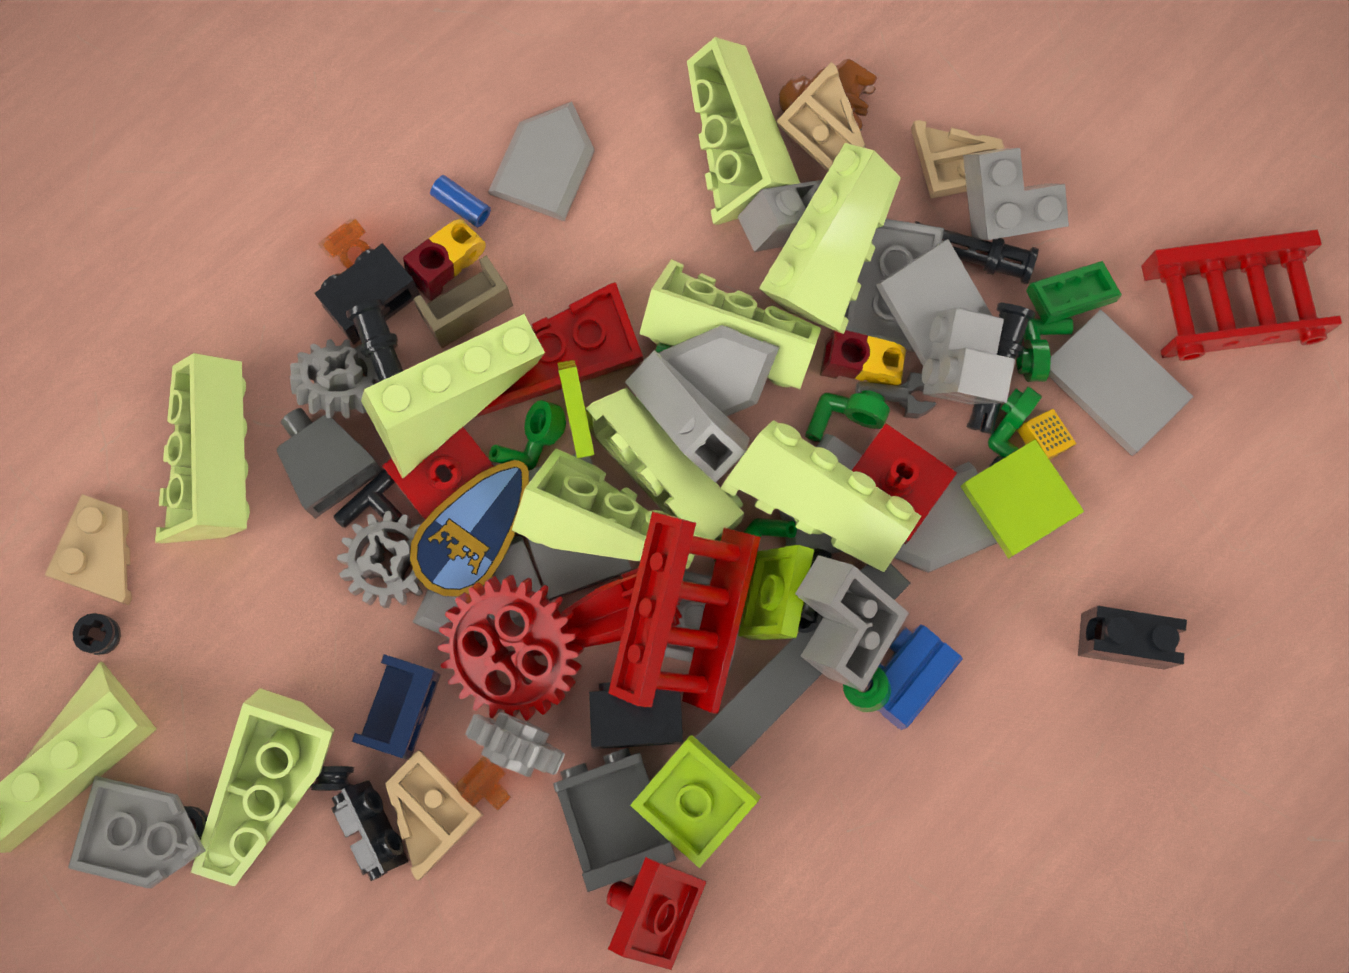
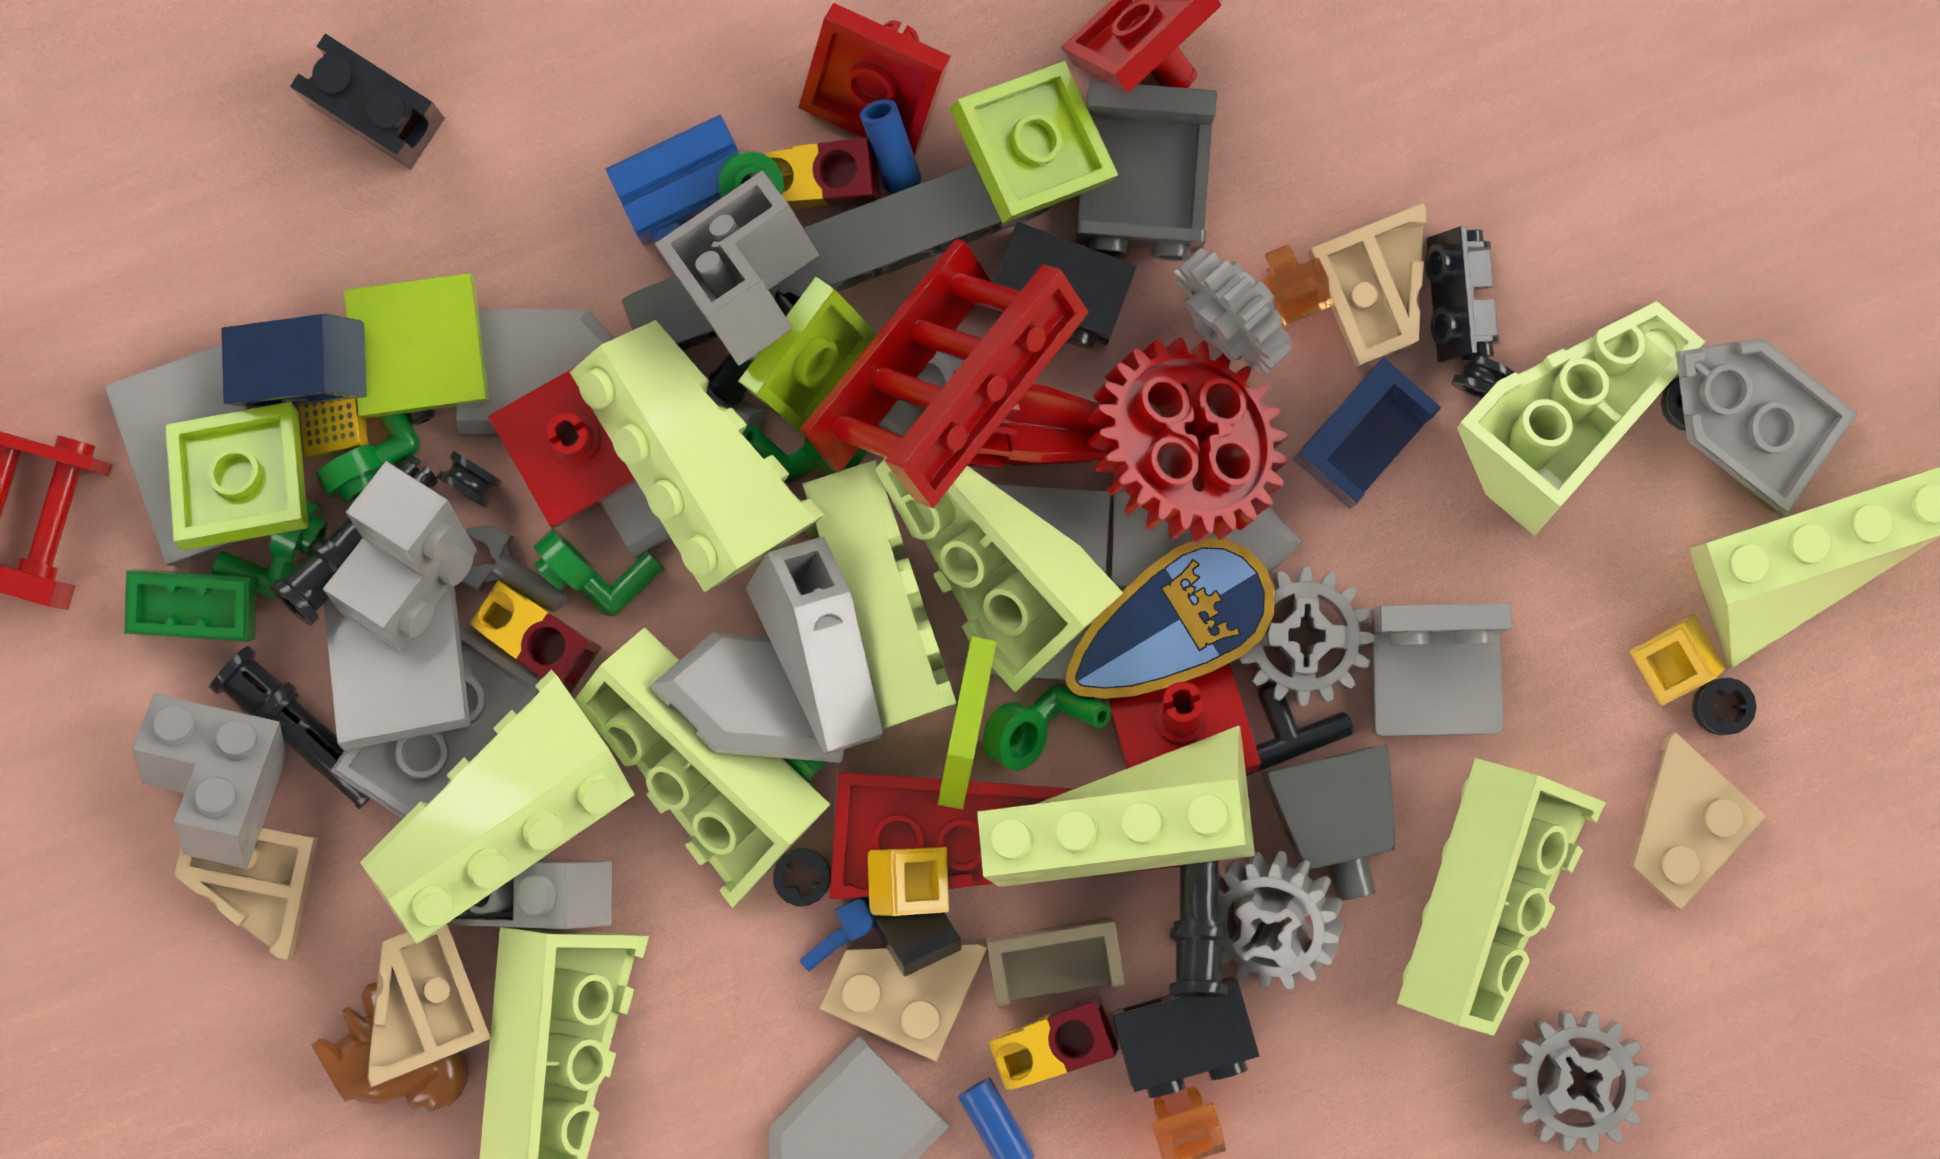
camera: 155 degrees left, 10 degrees up
(105, 385) = (1603, 1067): none -> light grey gear
(137, 652) = (1678, 660): none -> yellow slope
(292, 578) = (1438, 668): none -> light grey bracket
(547, 253) = (905, 1010): none -> tan wing
(553, 284) = (917, 939): none -> black tile
(571, 308) = (908, 881): none -> yellow slope
(593, 275) = (855, 923): none -> blue hand
(640, 280) = (792, 893): none -> black bush
(787, 758) = (890, 145): none -> blue axle
(819, 722) = (828, 174): none -> dark red leg
(819, 798) = (871, 62): none -> red tile
(949, 434) = (469, 479): none -> black bush
(1088, 370) = (236, 476): none -> lime tile
(1090, 452) = (294, 361): none -> dark blue panel

